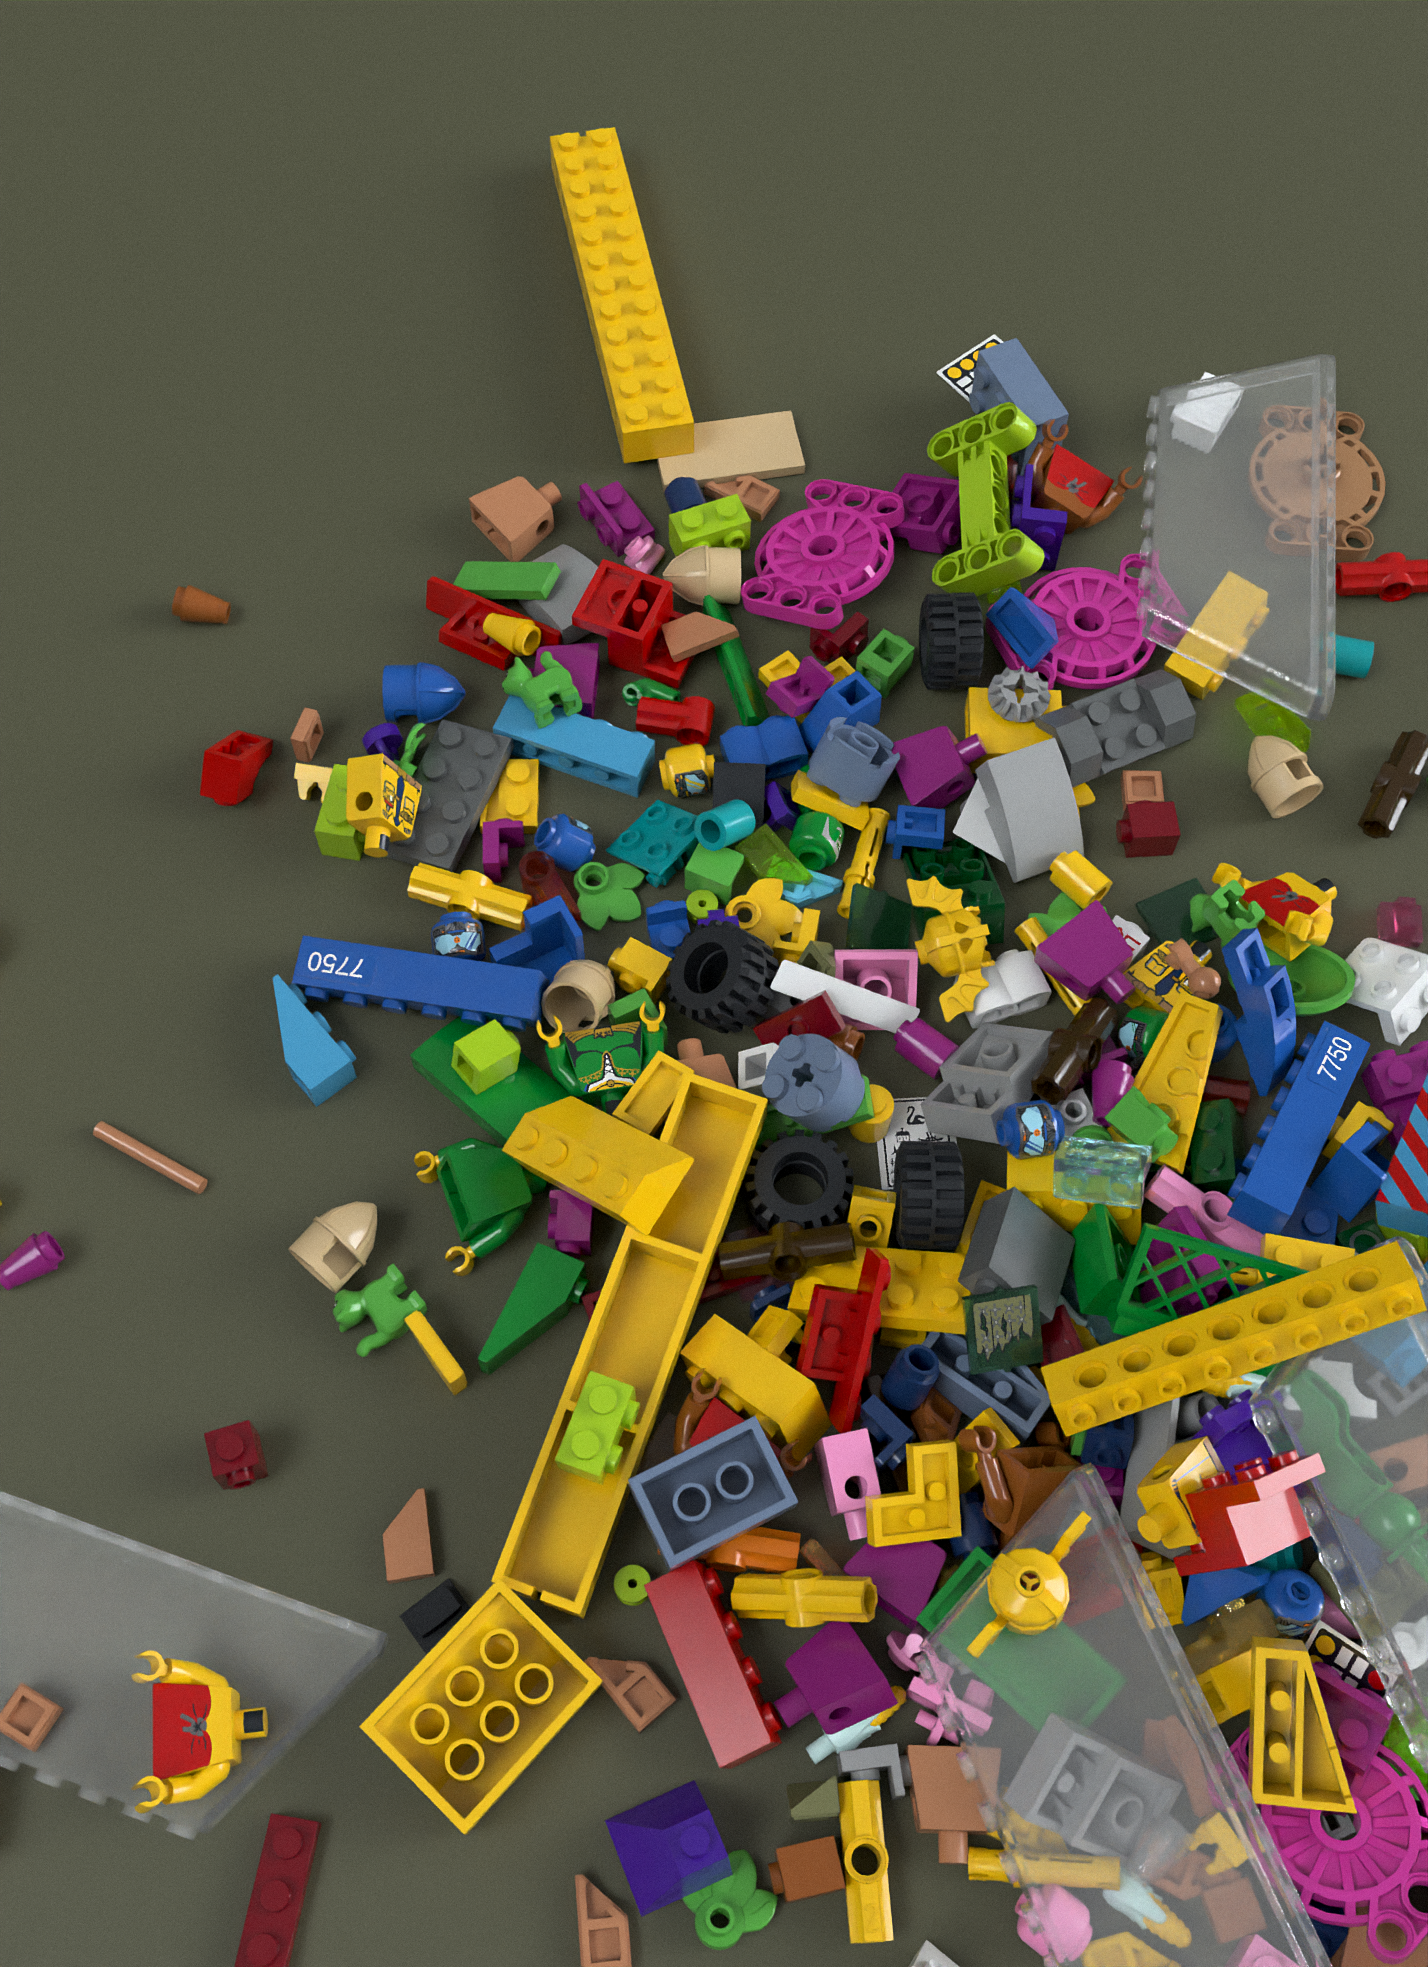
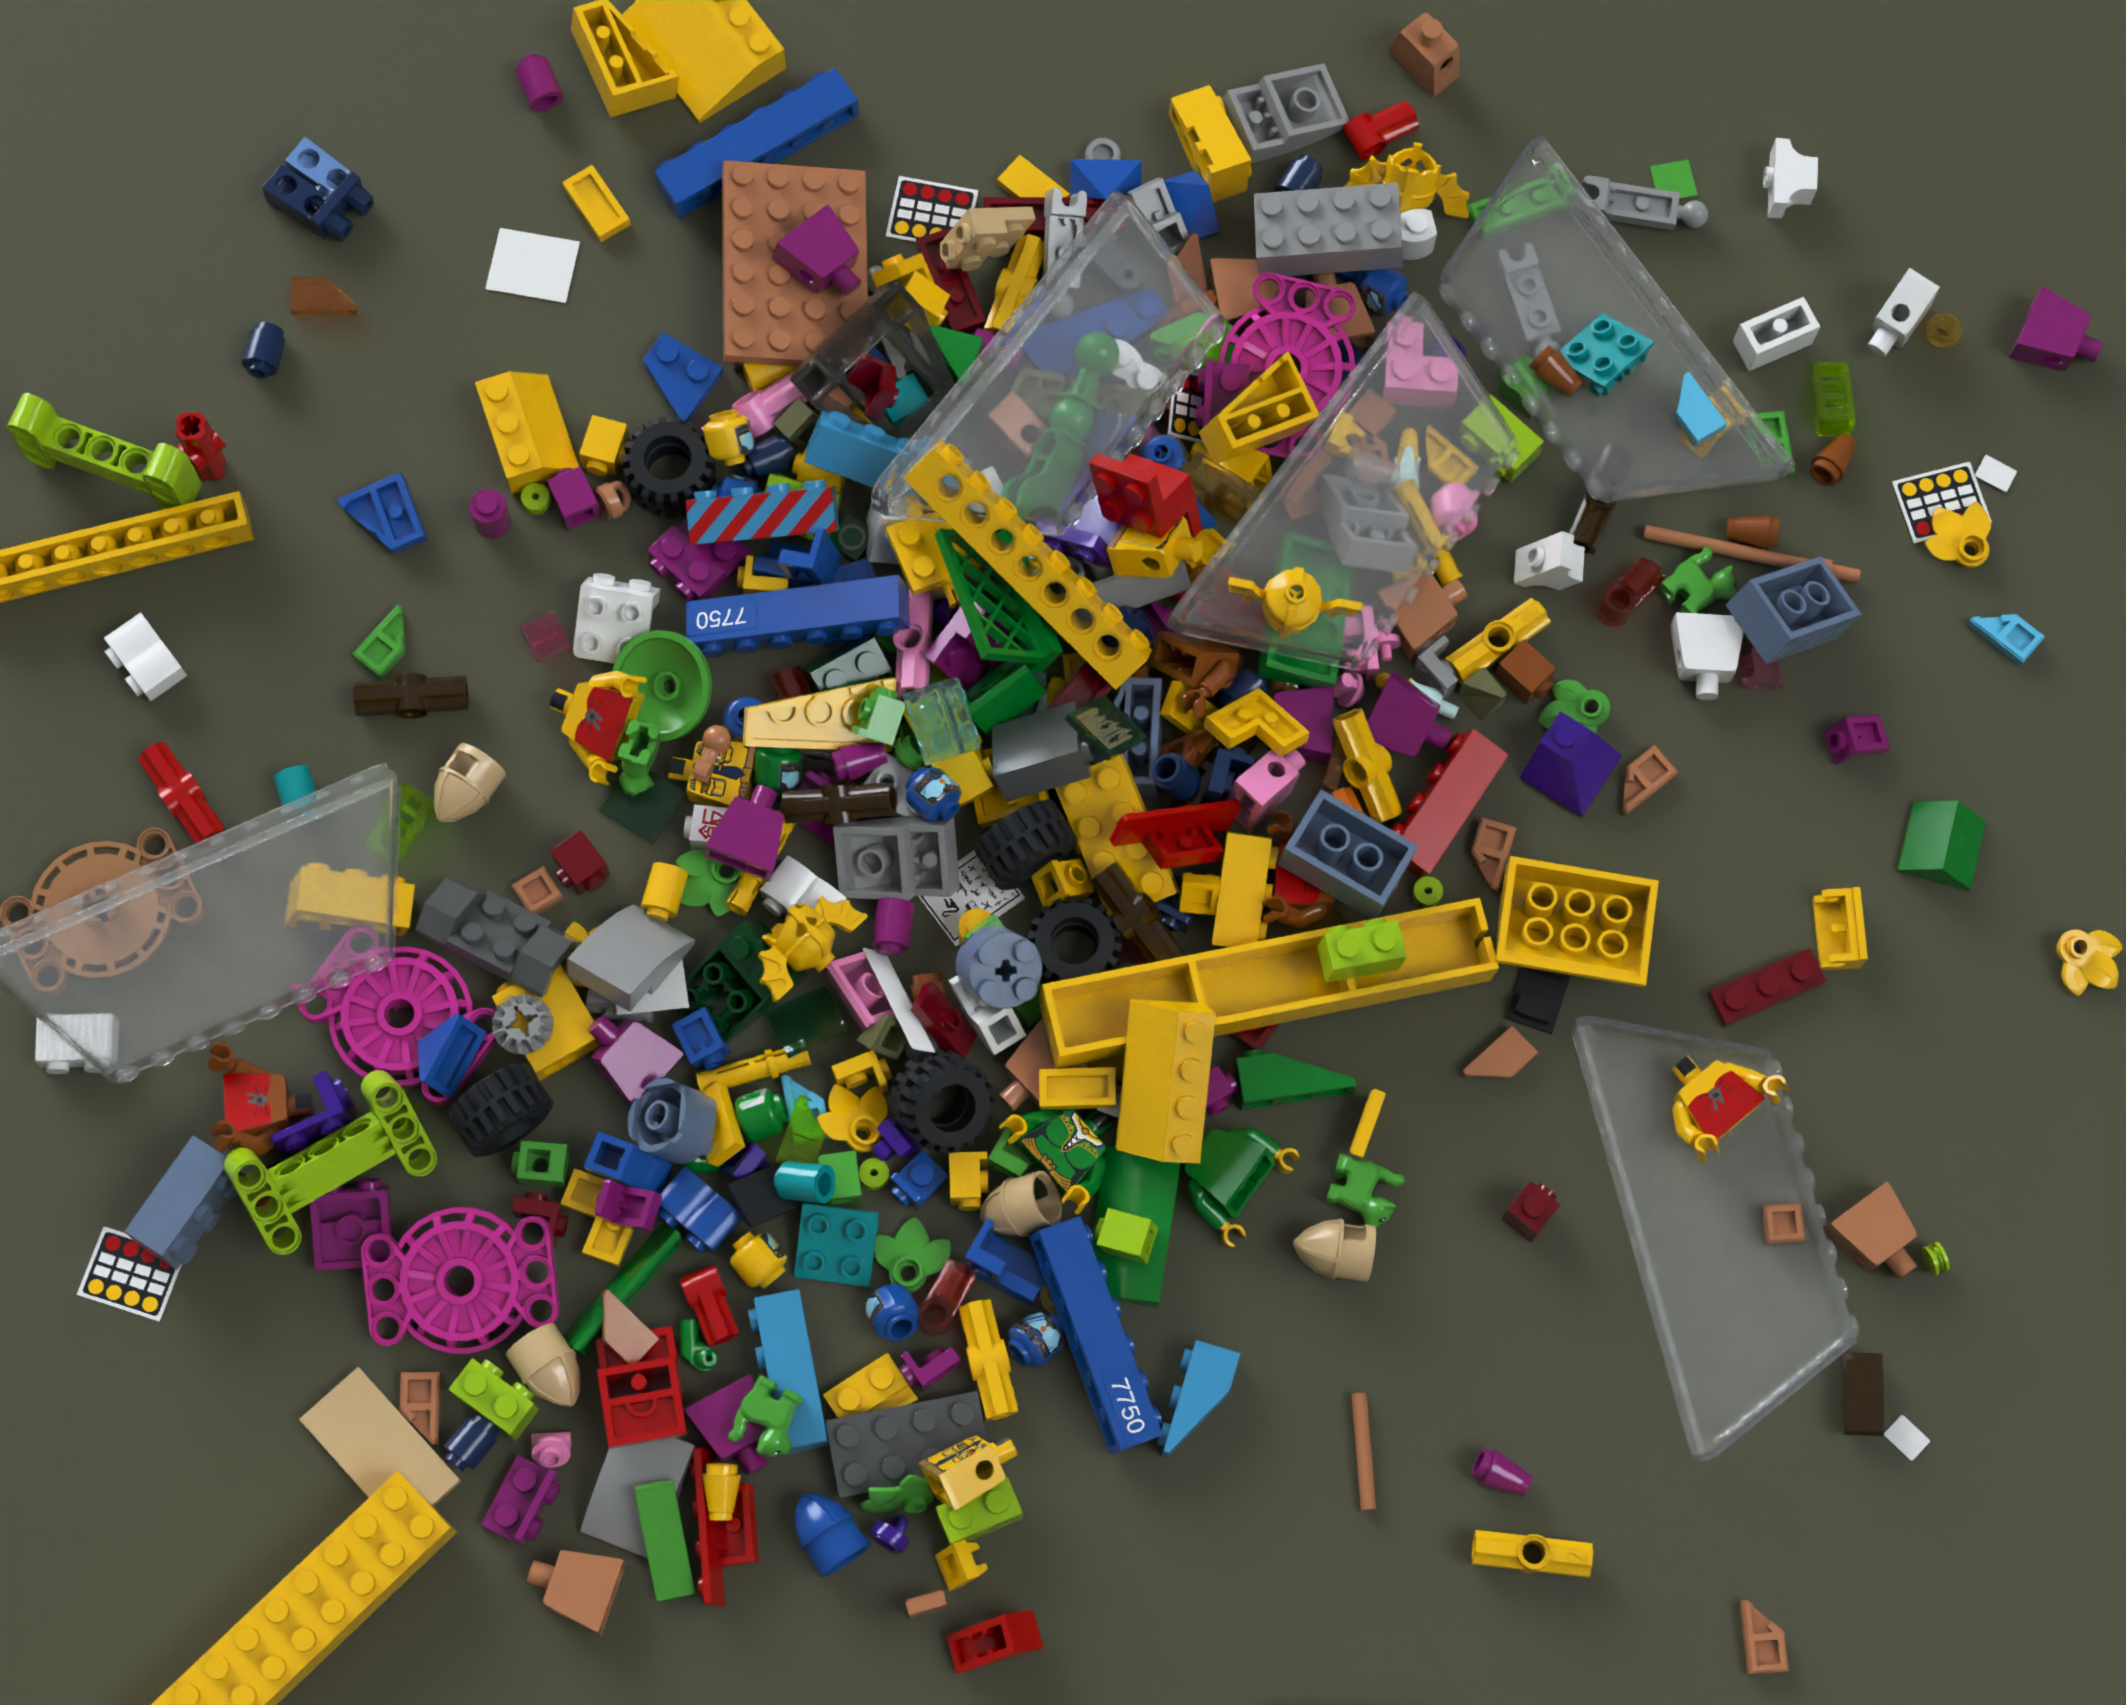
camera: 125 degrees left, 10 degrees up
(1268, 1006) = (719, 681): blue slope -> none

